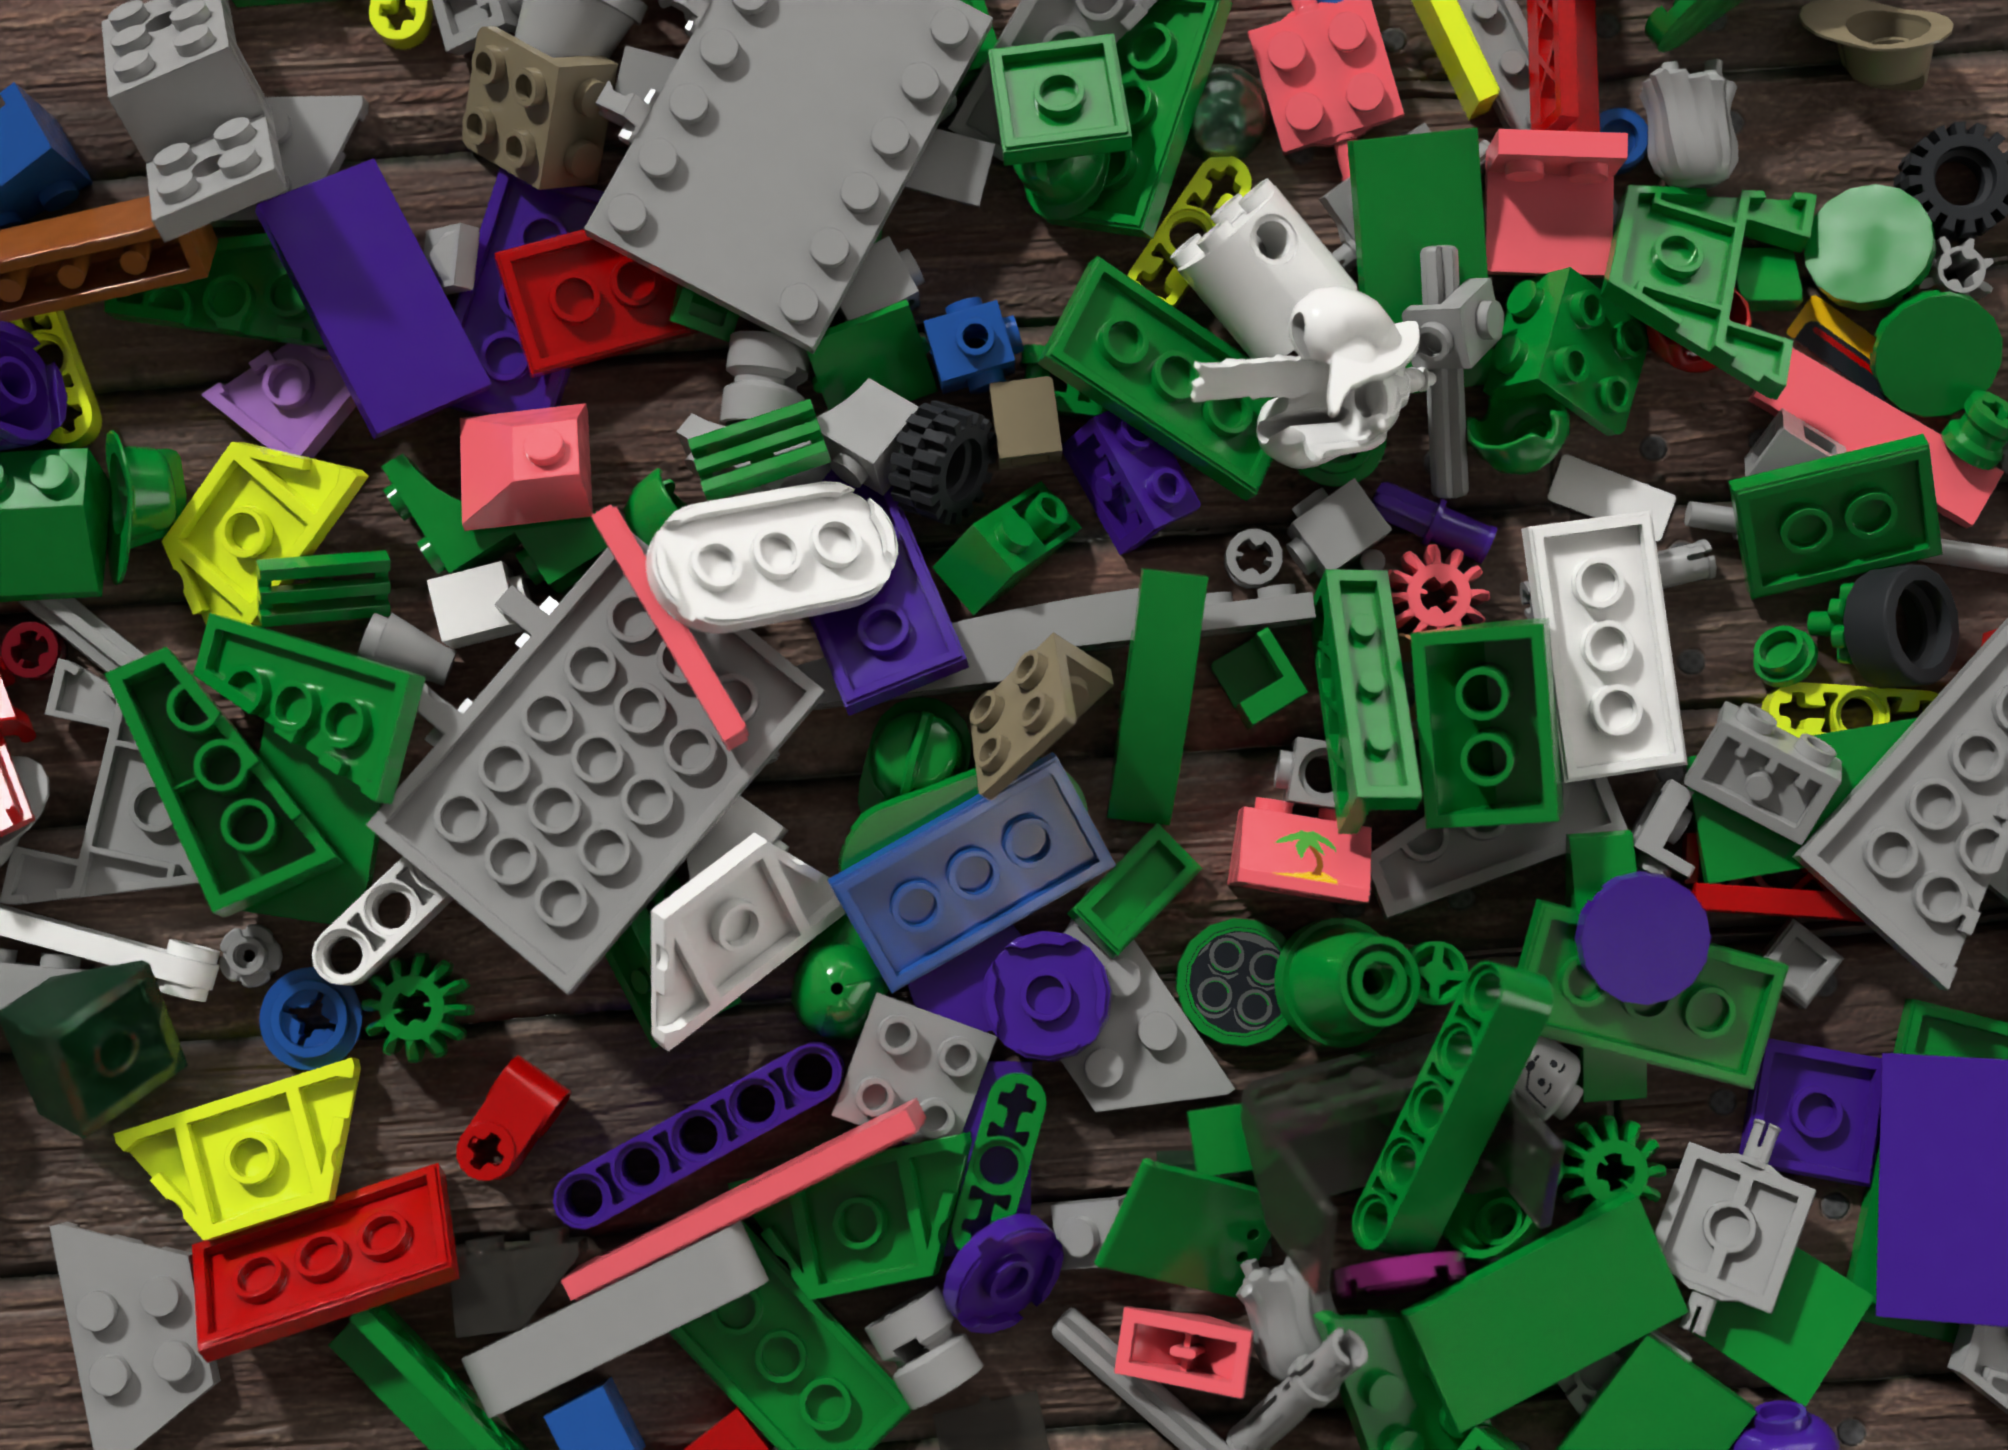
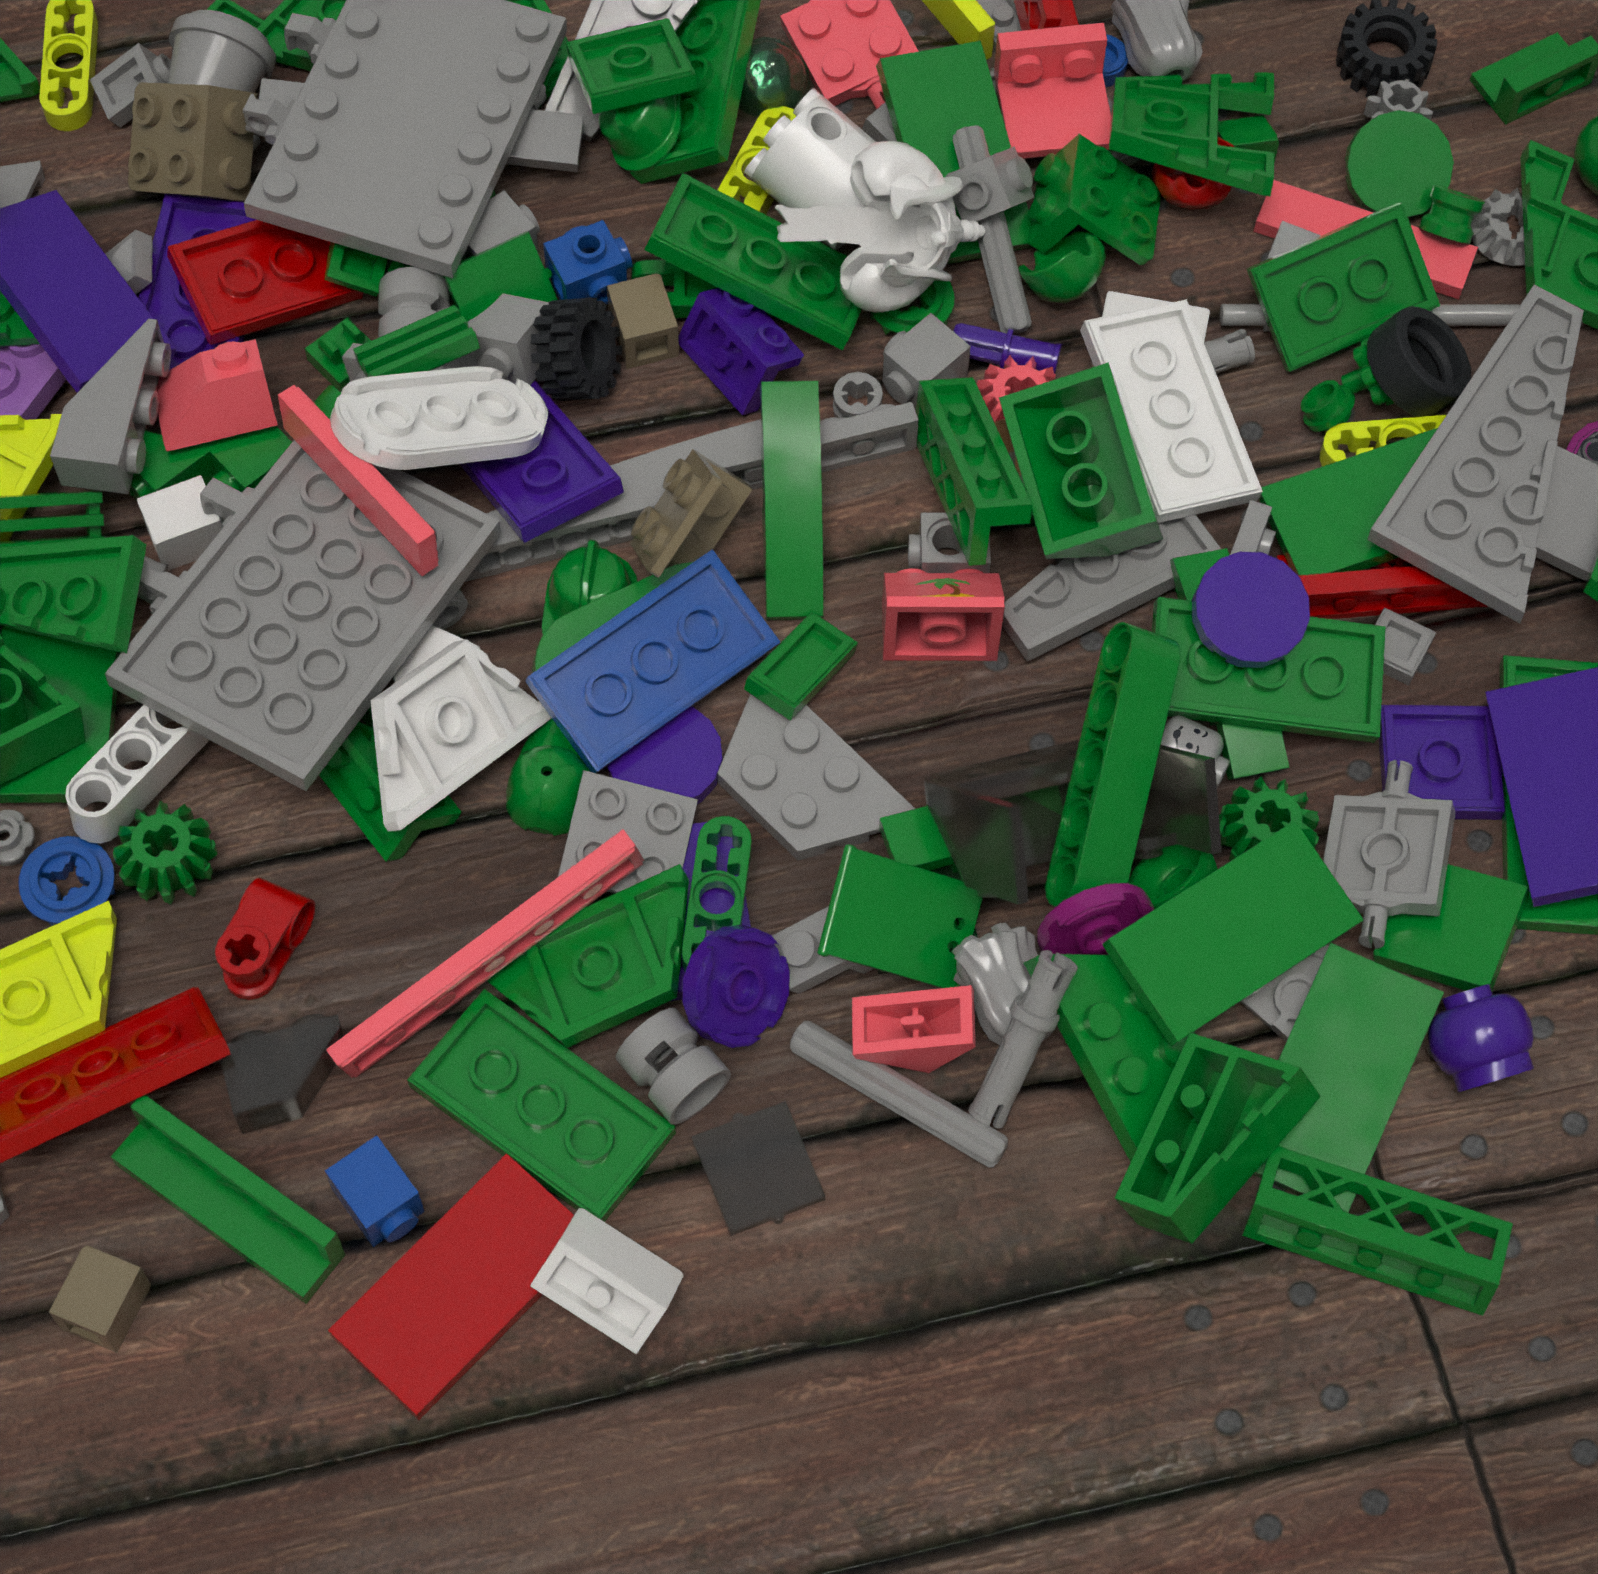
camera: 10 degrees left, 20 degrees down
(399, 492) = (105, 422): none -> light grey slope
(615, 1319) = (380, 1082): light grey beam -> none
(669, 1142) = (428, 945): dark purple beam -> none
(676, 400) = (328, 350): none -> green tile
(1006, 547) = (640, 413): green slope -> none
(1047, 996) = (737, 754): dark purple tile -> none
(1229, 982) = (908, 729): tile -> none
(1258, 679) = (882, 488): green panel -> none
(1323, 987) = (1001, 698): green piece -> none
(1443, 974) = (1075, 679): green wheel -> none
(1766, 771) = (1326, 477): light grey bracket -> none
(1836, 342) = (1314, 176): sticker -> none
(1870, 247) = (1325, 98): tile -> none

